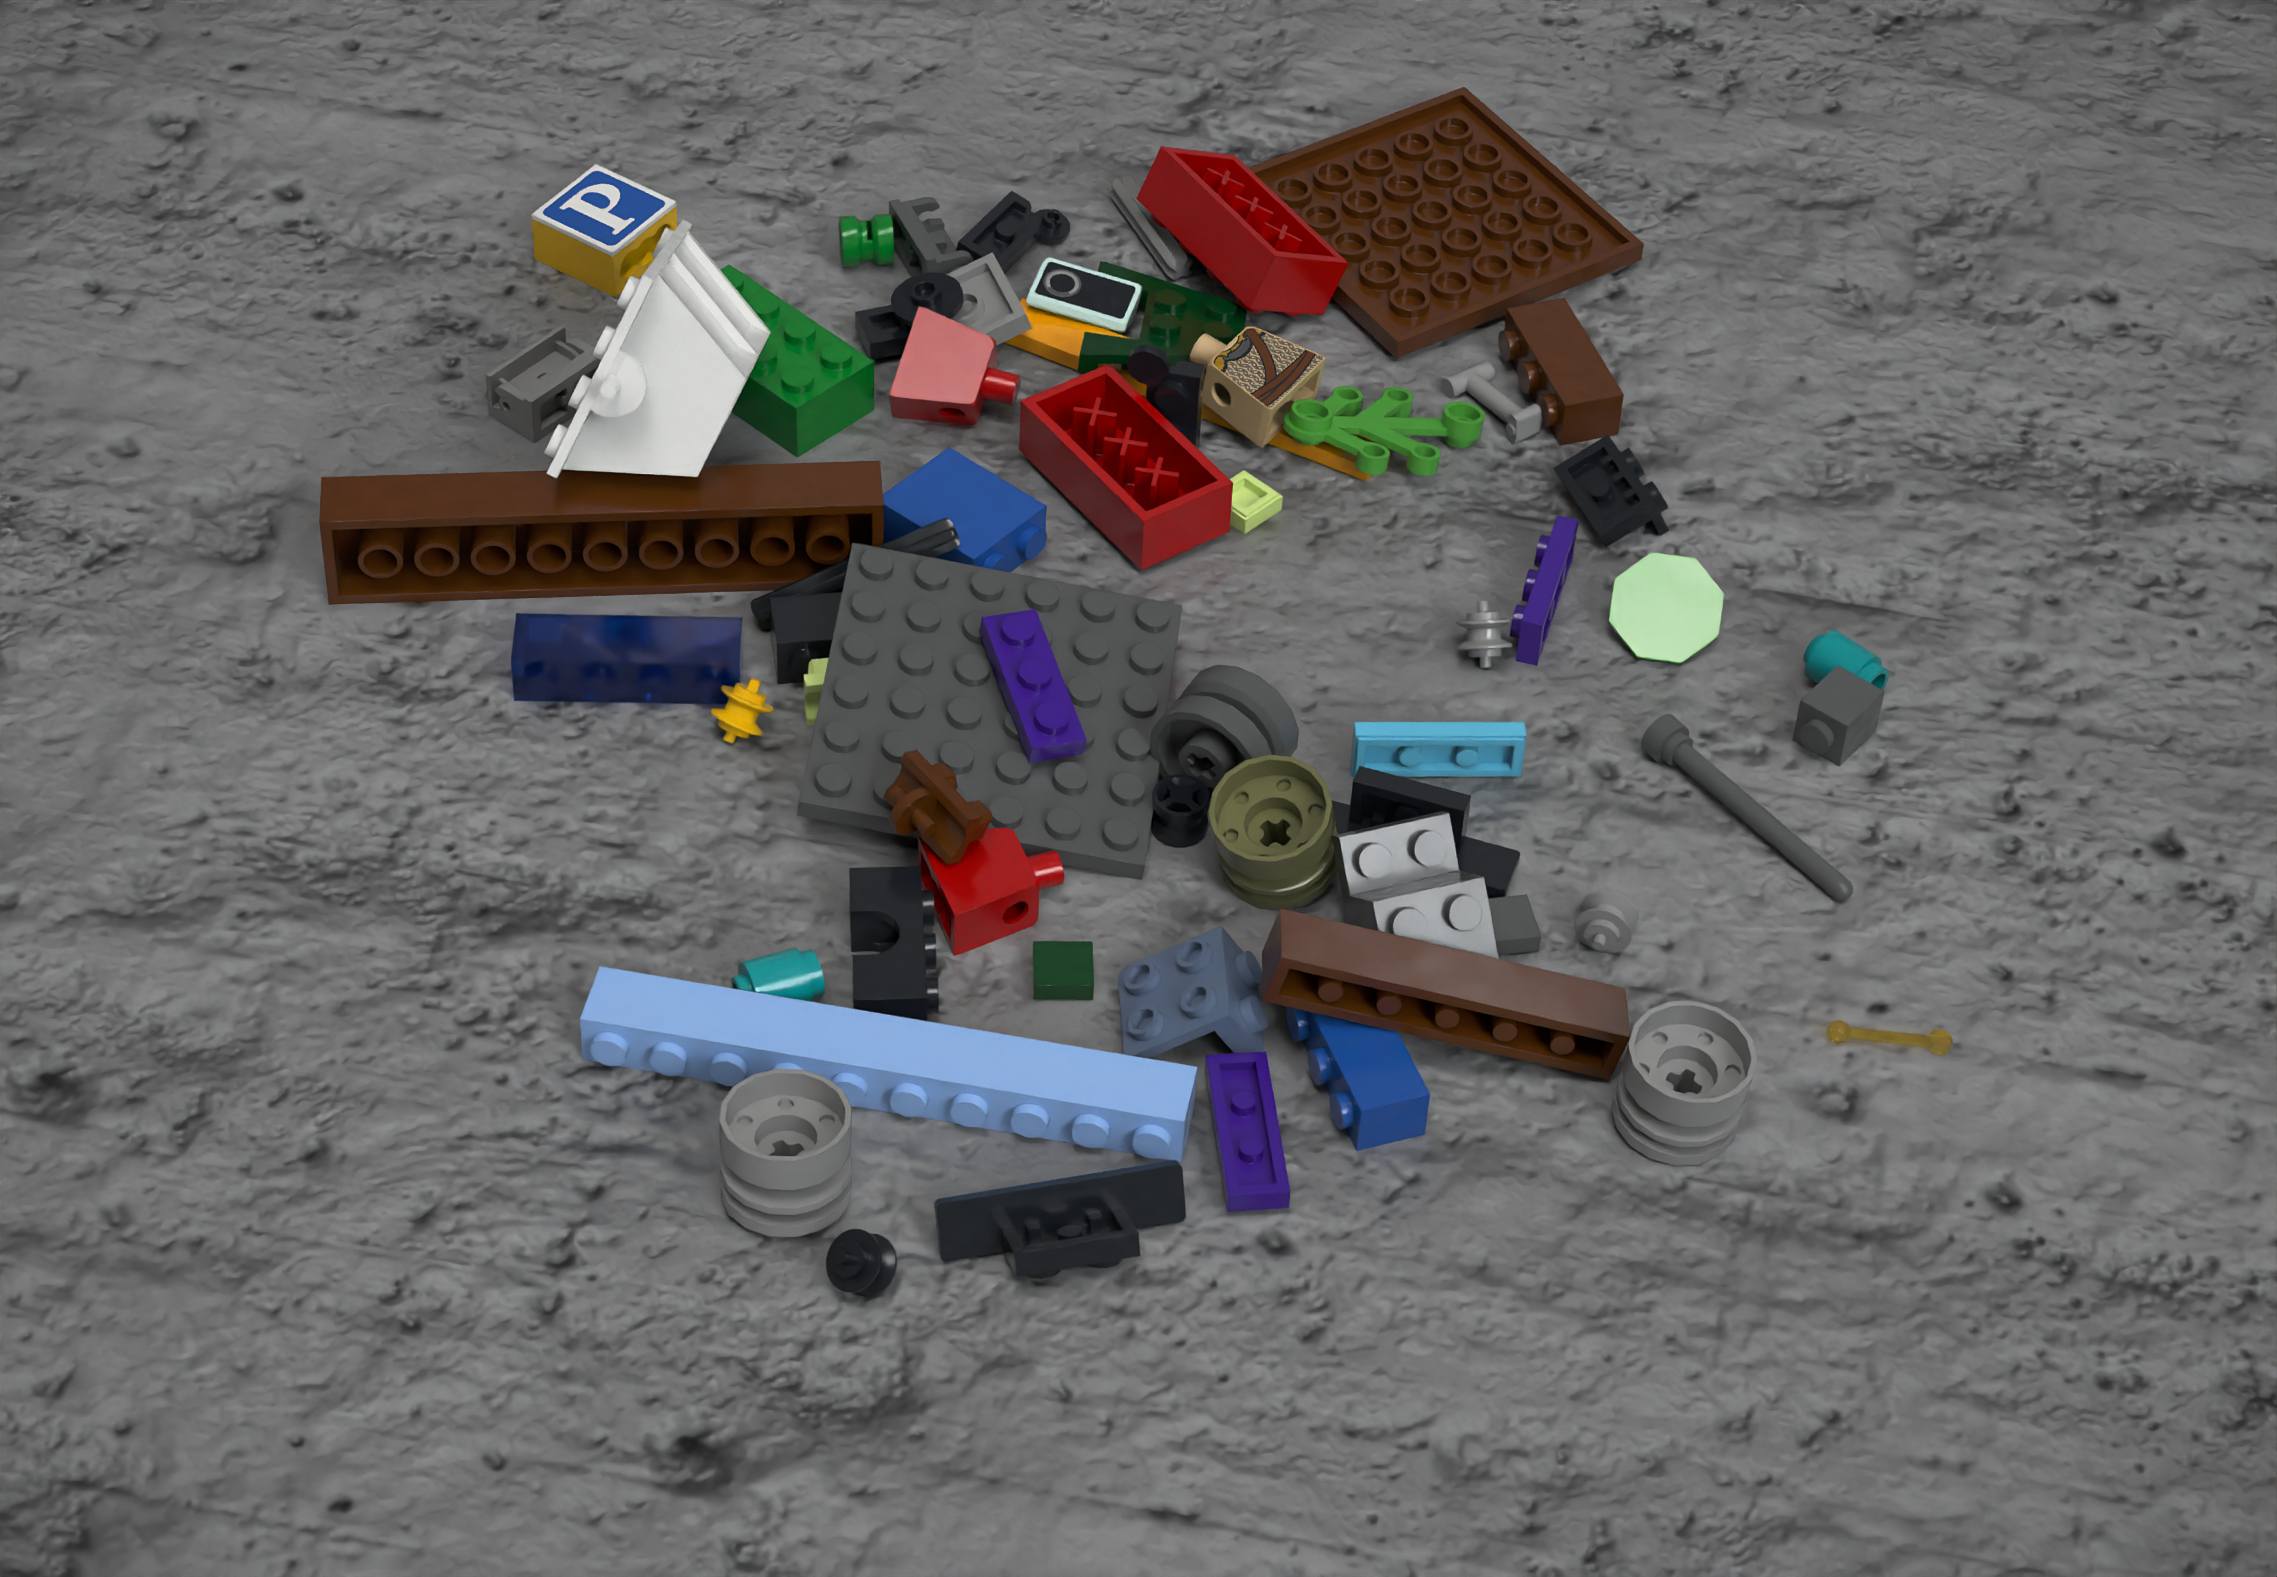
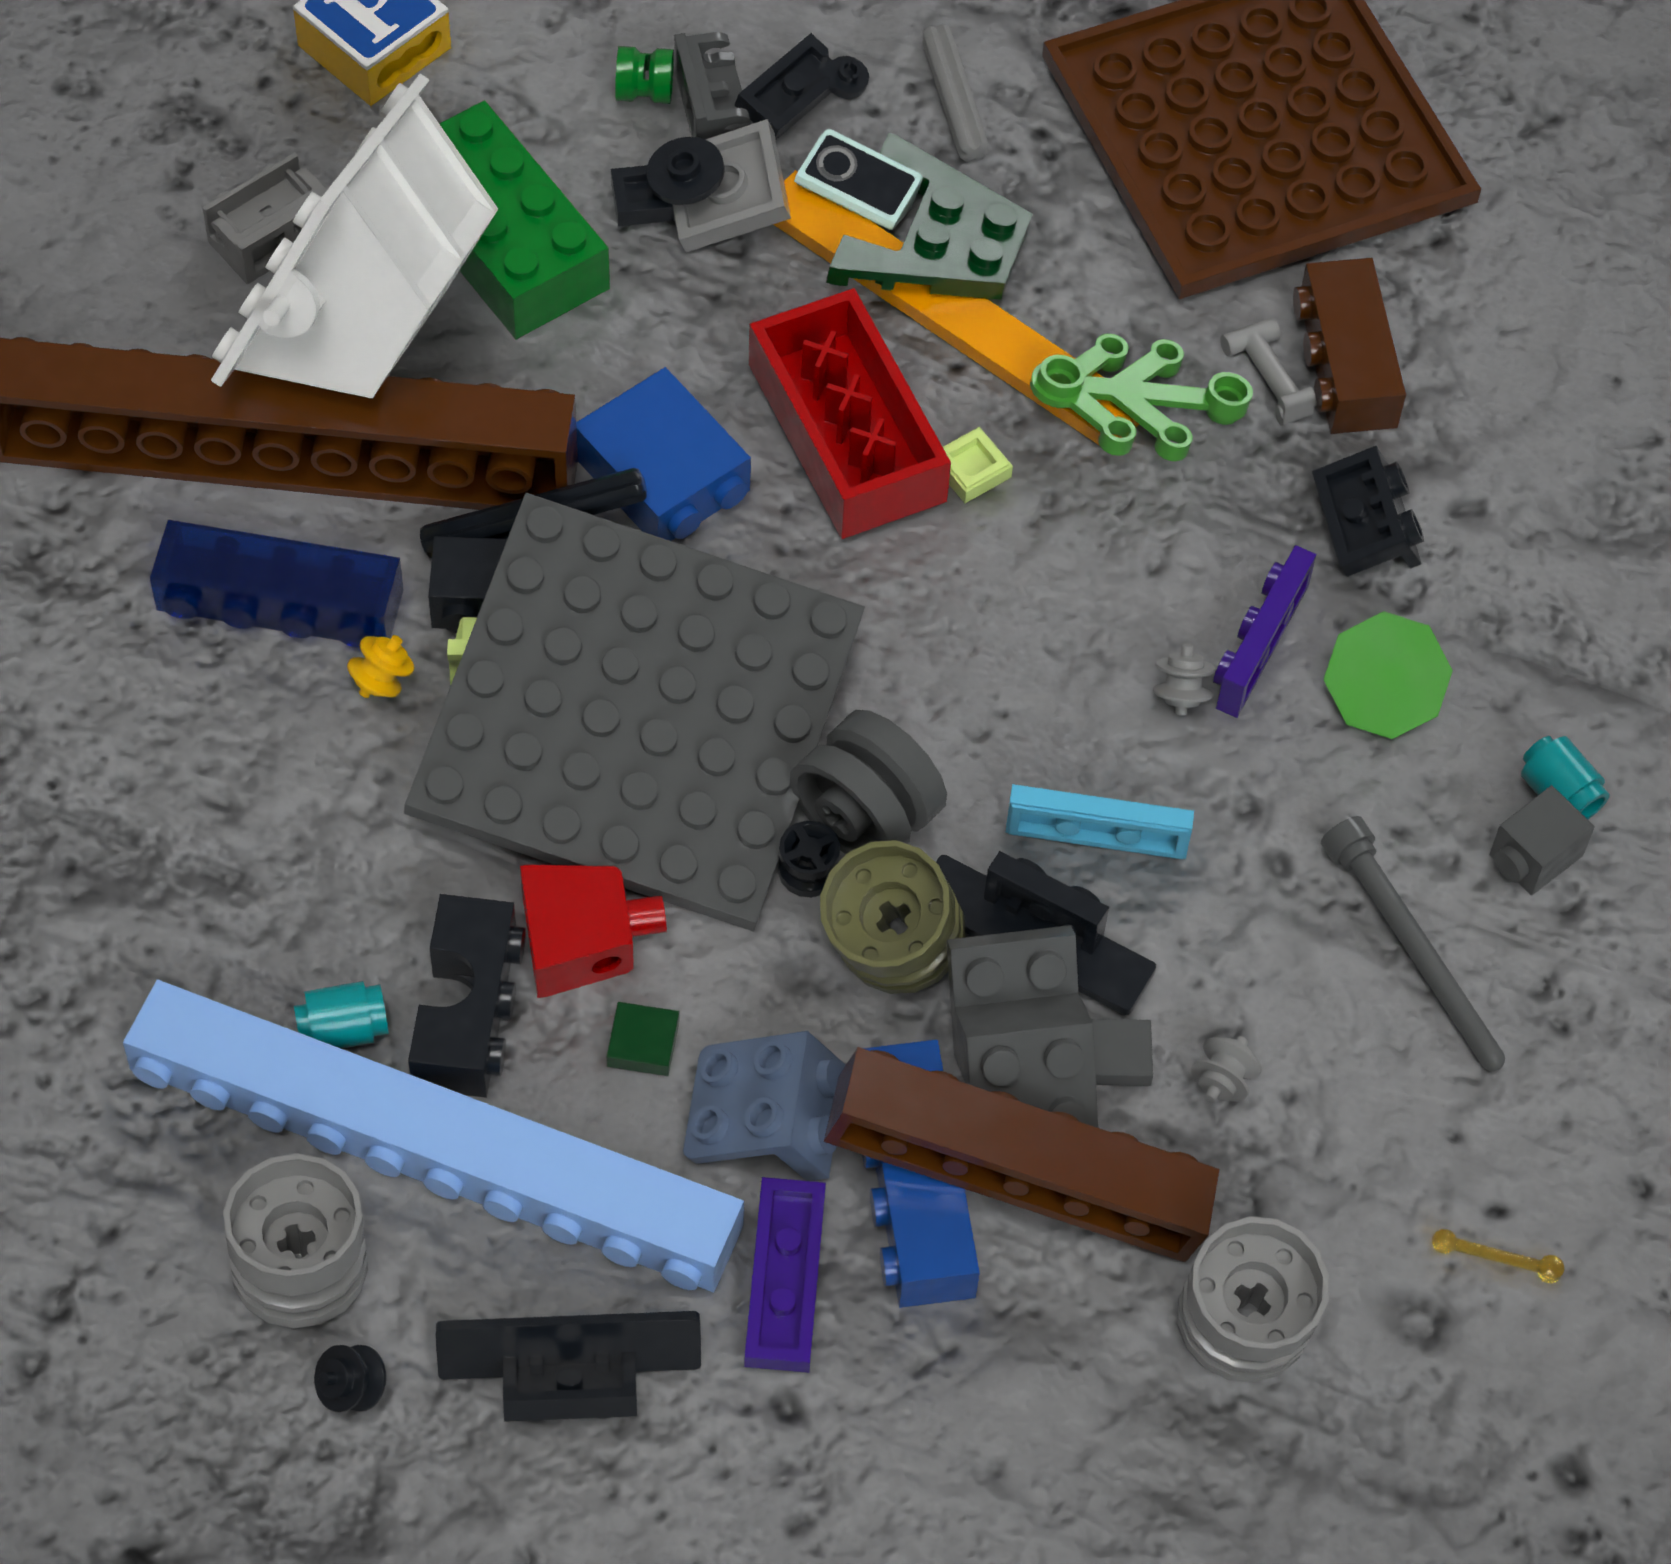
camera: 10 degrees right, 15 degrees up
(928, 804) = (531, 846): reddish brown hips -> none
(948, 373) = (688, 266): torso -> none
(1032, 686) = (677, 697): dark purple plate -> none
(1171, 389) = (913, 338): black hinge -> none
(1241, 232) = (1042, 124): red brick -> none
(1256, 380) = (1012, 323): tan torso -> none

